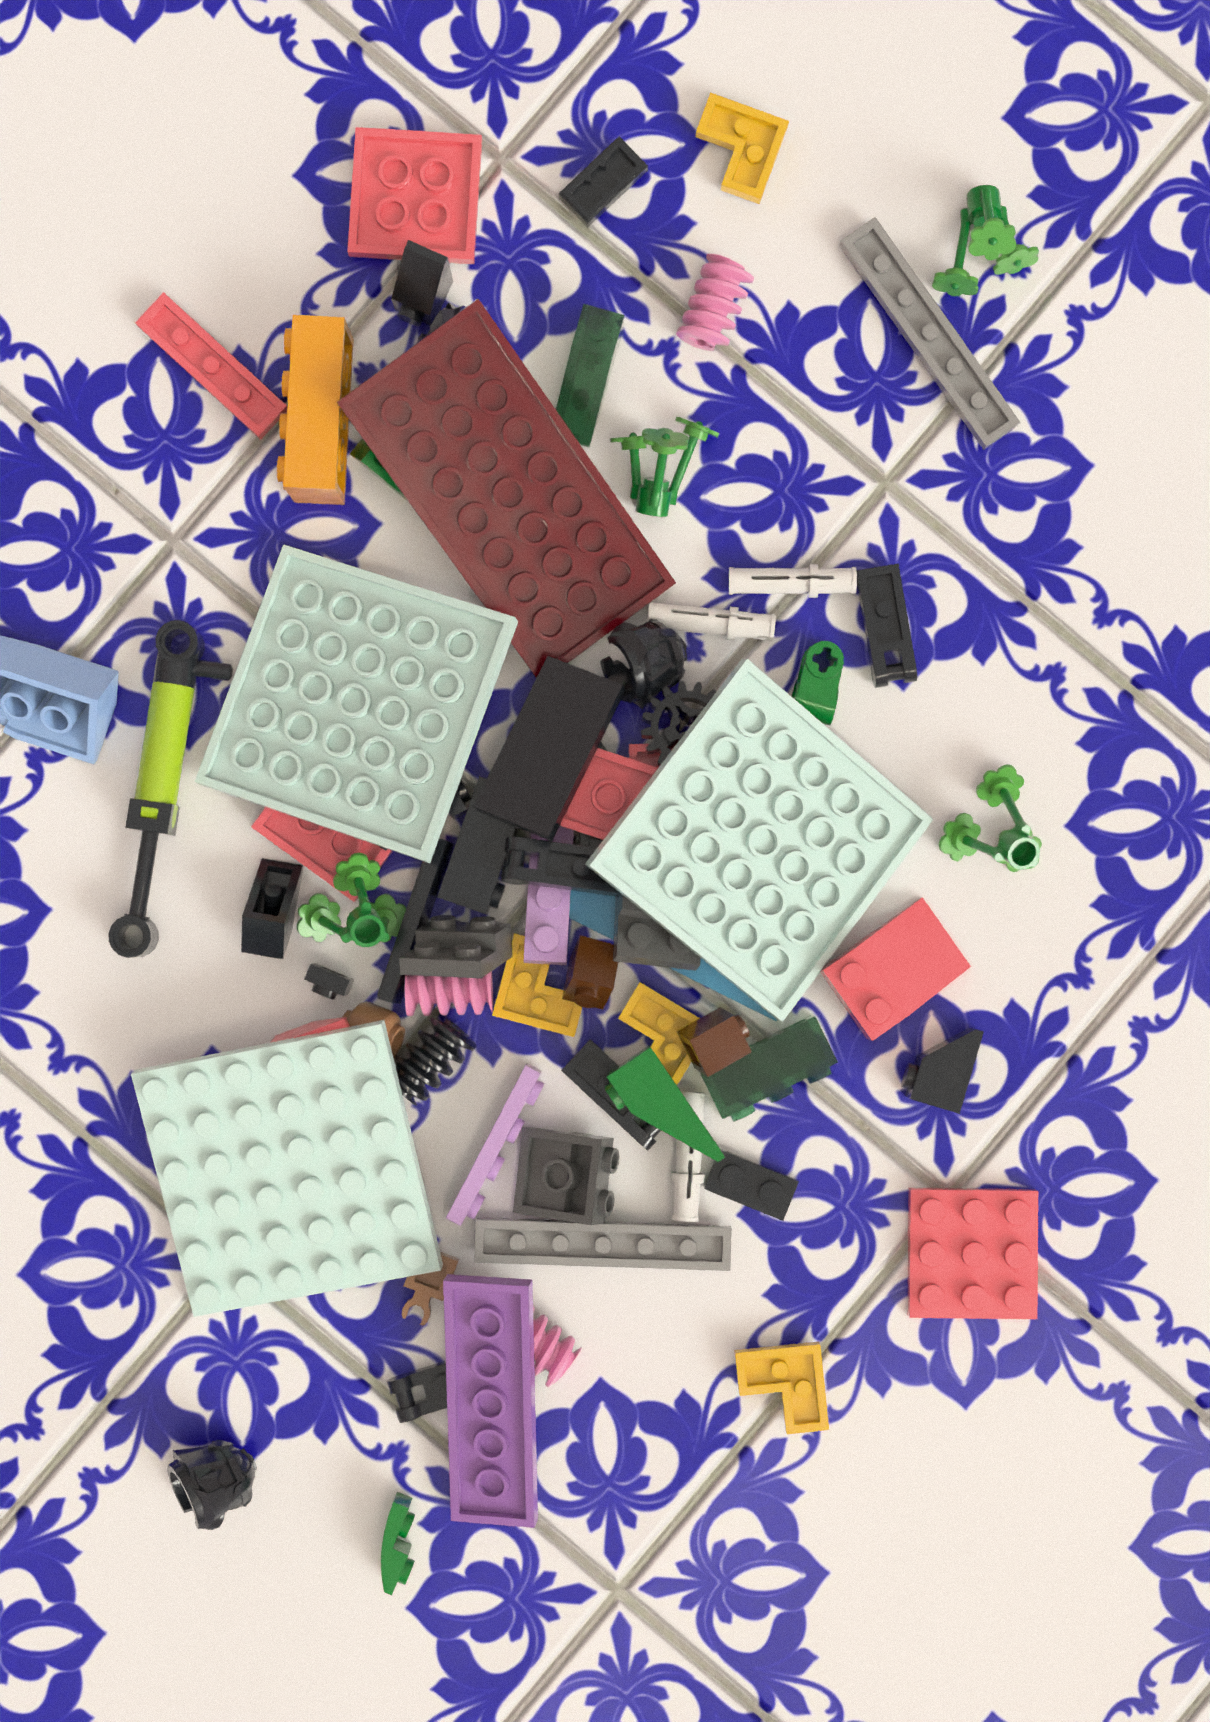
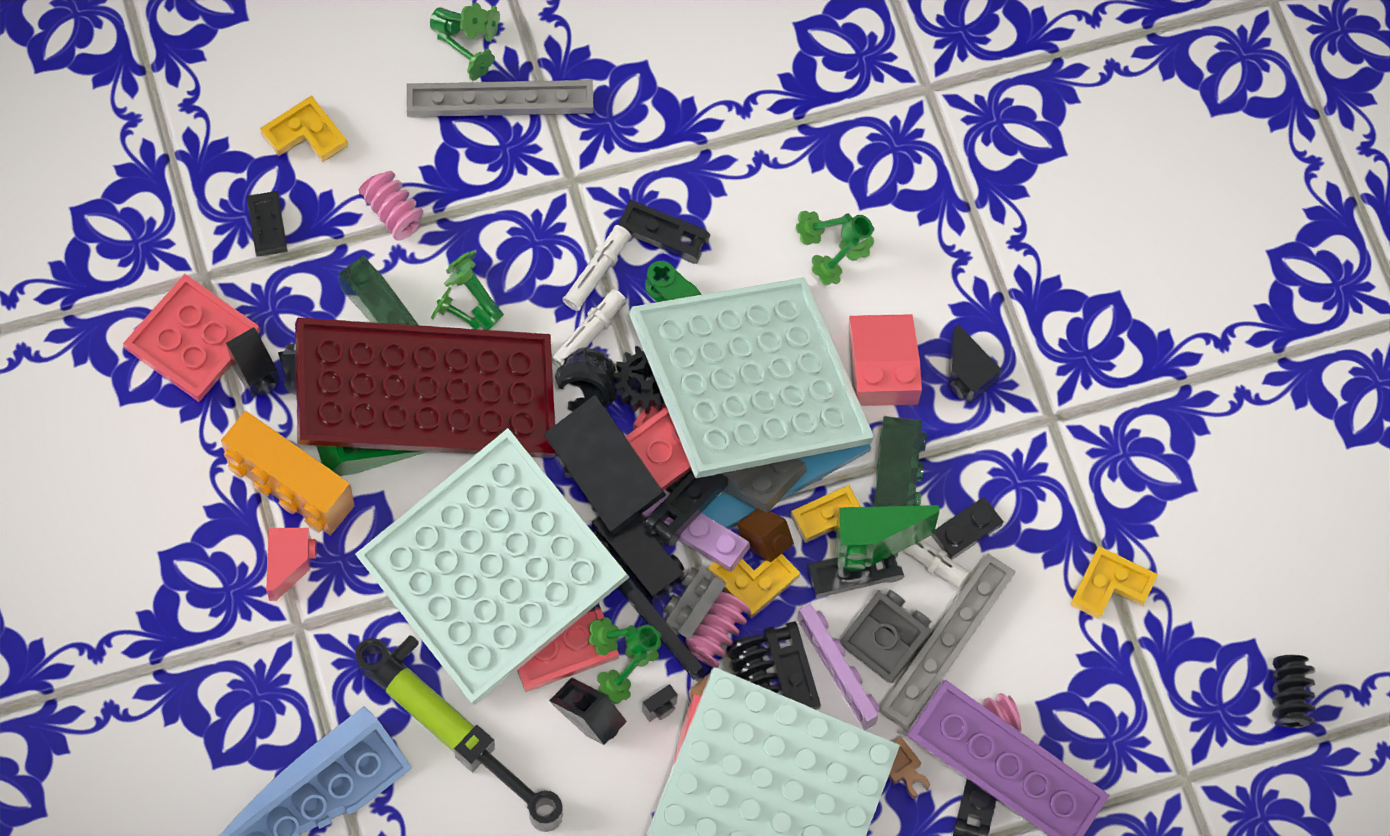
camera: 60 degrees left, 20 degrees down
(211, 365) = (206, 527): coral plate -> none
(229, 476) = (288, 558): none -> coral slope
(461, 1096) = (792, 665): none -> black plate
(715, 1041) = (860, 483): reddish brown brick -> none
(785, 1659) = (1292, 692): none -> black piece
(972, 1253) = (1097, 423): coral plate -> none

